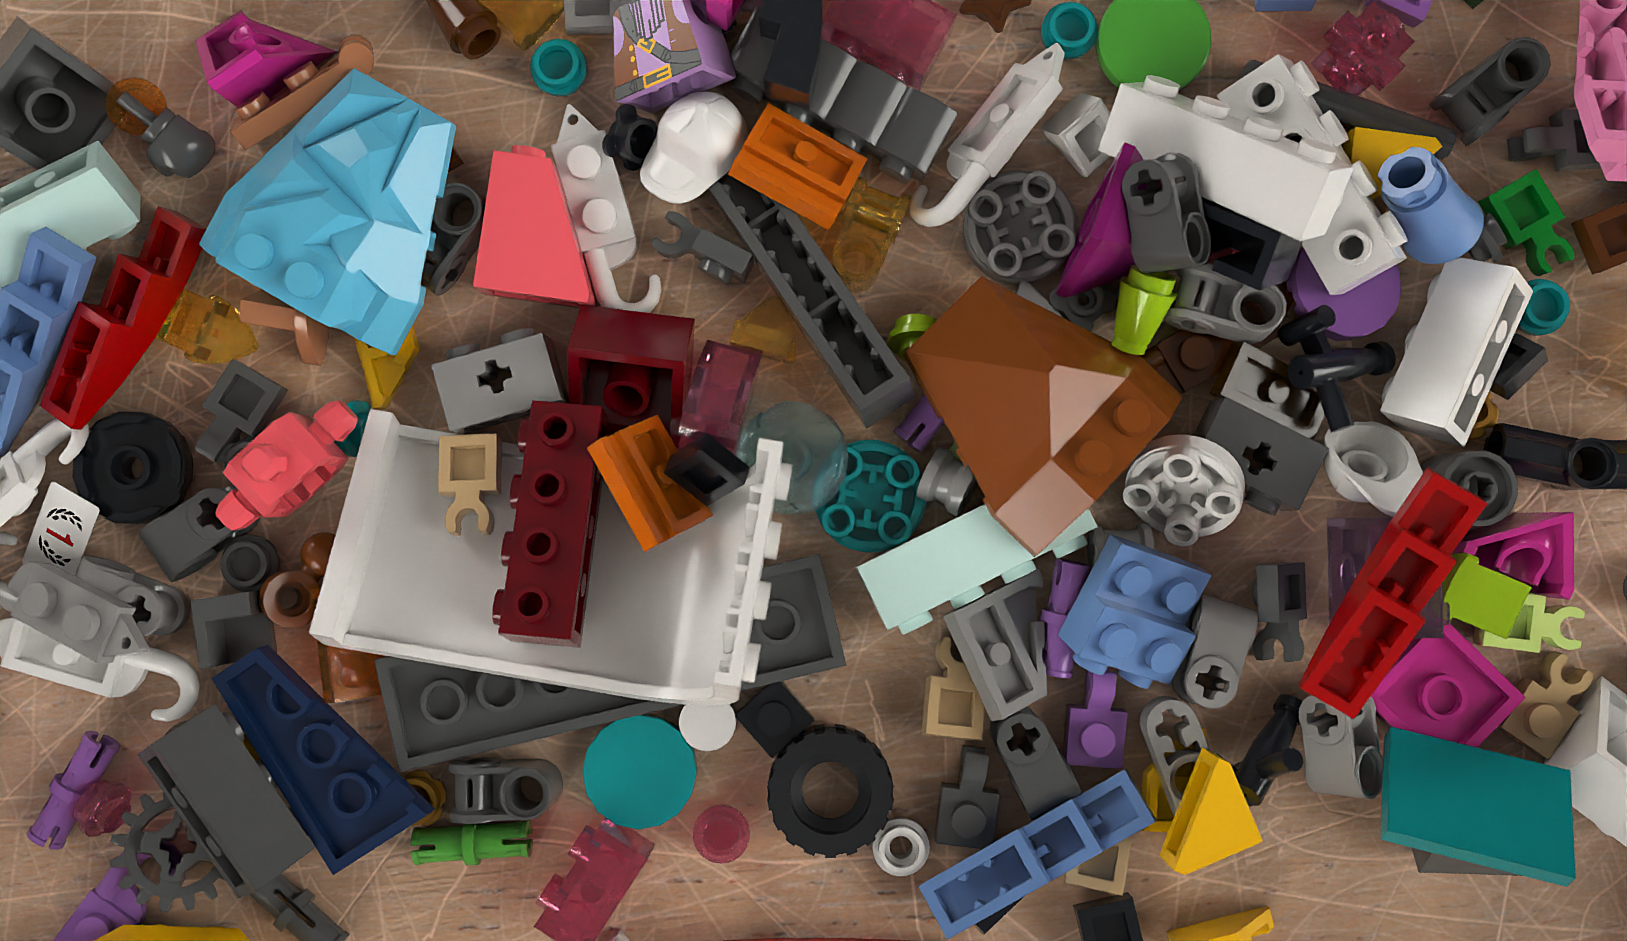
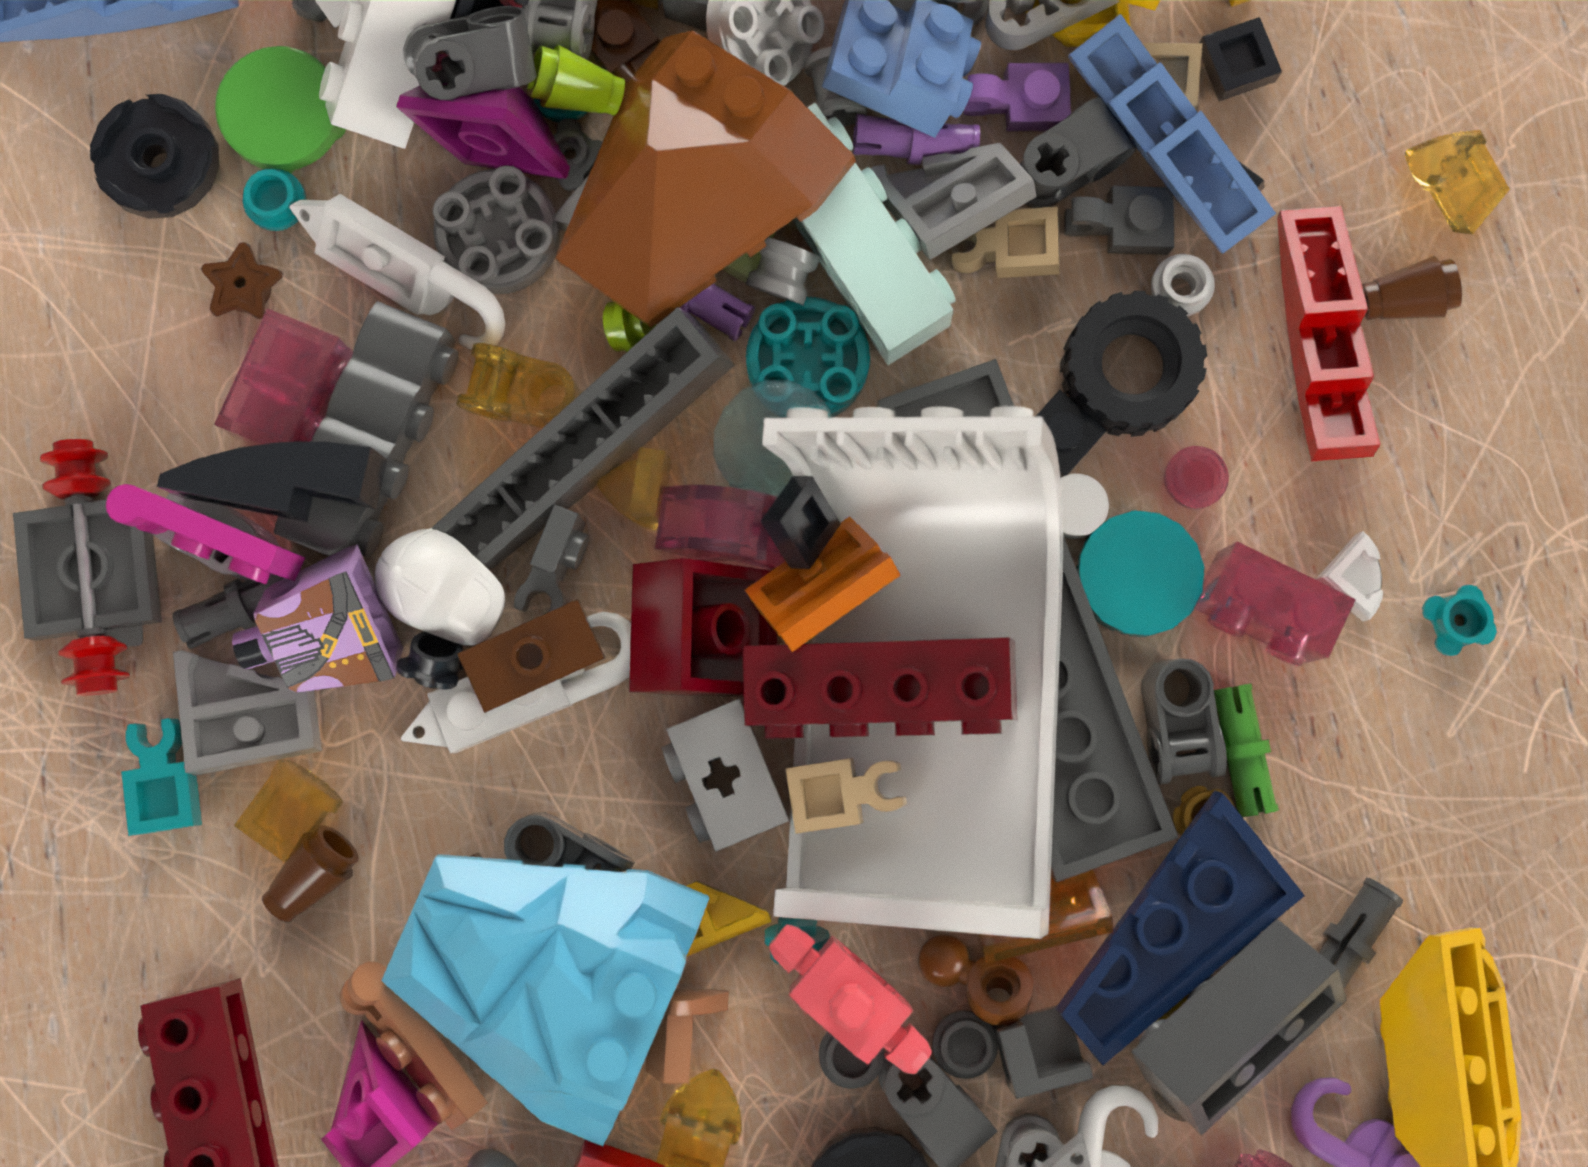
camera: 95 degrees left, 5 degrees down
(151, 844) = (1332, 1085): dark grey gear -> none
(241, 403) = (781, 1075): dark grey plate -> none
(529, 235) = (554, 760): coral slope -> none
(558, 67) = (360, 755): teal plate -> none
(621, 222) = (531, 655): none -> reddish brown plate
(797, 166) = (451, 466): orange plate -> none
(1079, 131) = (385, 176): white slope -> none

